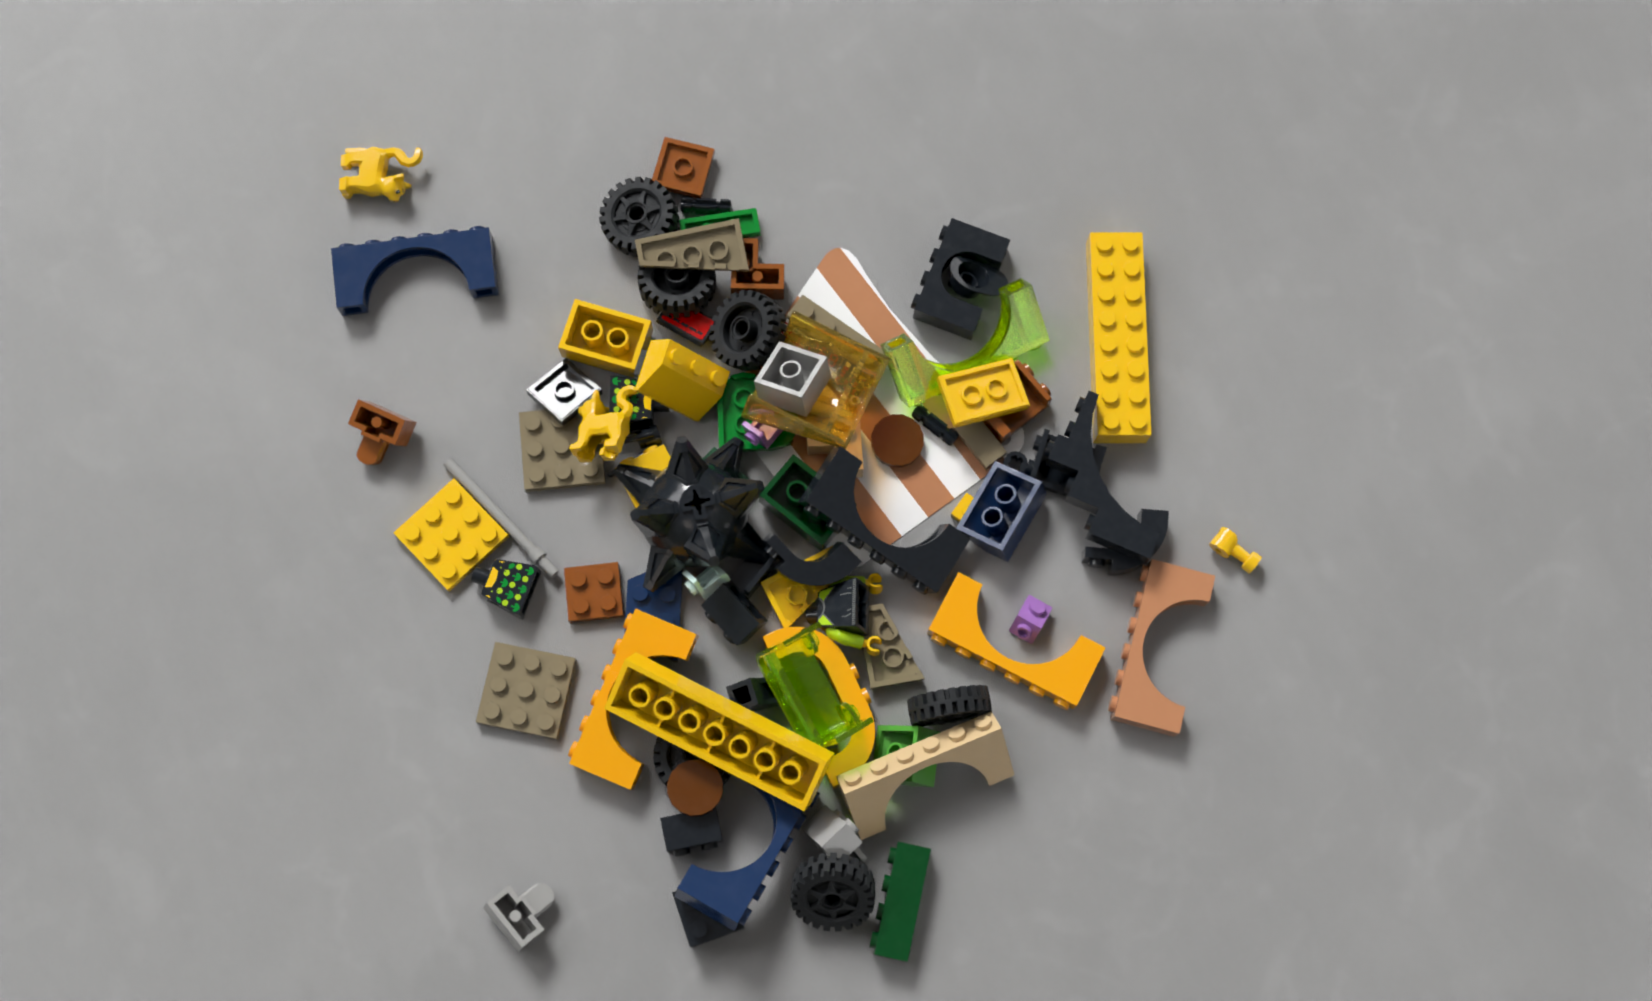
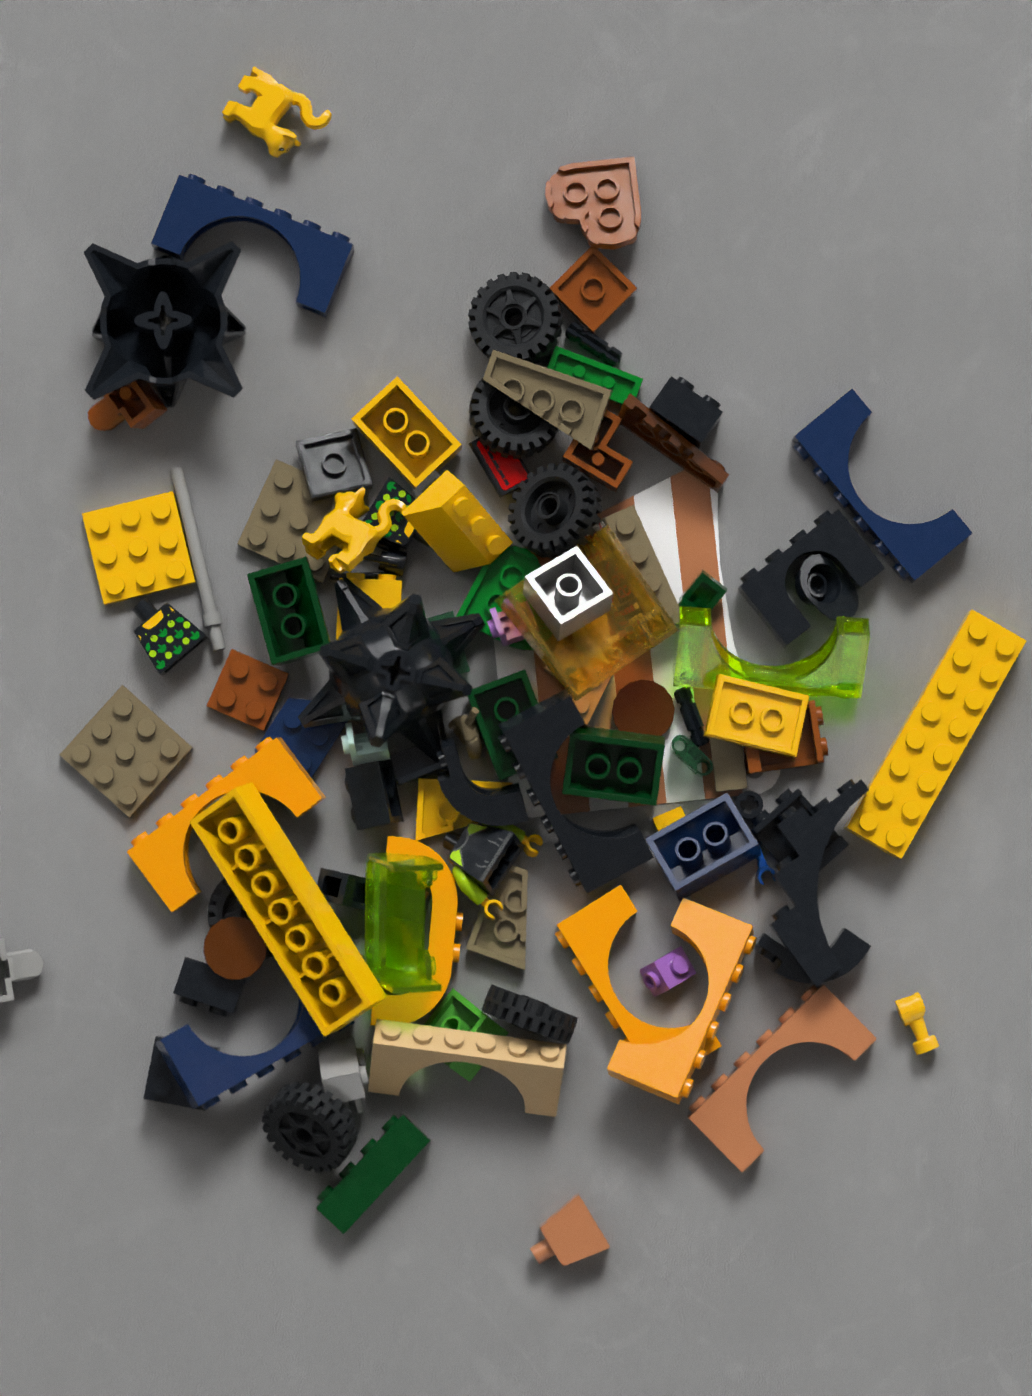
camera: 30 degrees right, 10 degrees up
(361, 332) = (137, 307): none -> black piece
(592, 512) = (289, 611): none -> dark green slope
(651, 103) = (599, 198): none -> plate
(777, 525) = (468, 732): none -> dark tan piece
(800, 239) = (666, 440): none -> reddish brown wing
(801, 211) = (686, 410): none -> black brick
(889, 328) = (702, 592): none -> dark green bracket
(900, 488) = (614, 765): none -> dark green brick
(952, 451) = (691, 755): none -> clear green piece
(1016, 218) = (910, 546): none -> dark blue arch
(1052, 502) = (762, 864): none -> blue hand
(1076, 682) = (668, 1066): none -> light orange arch
(1079, 859) = (570, 1234): none -> nougat torso

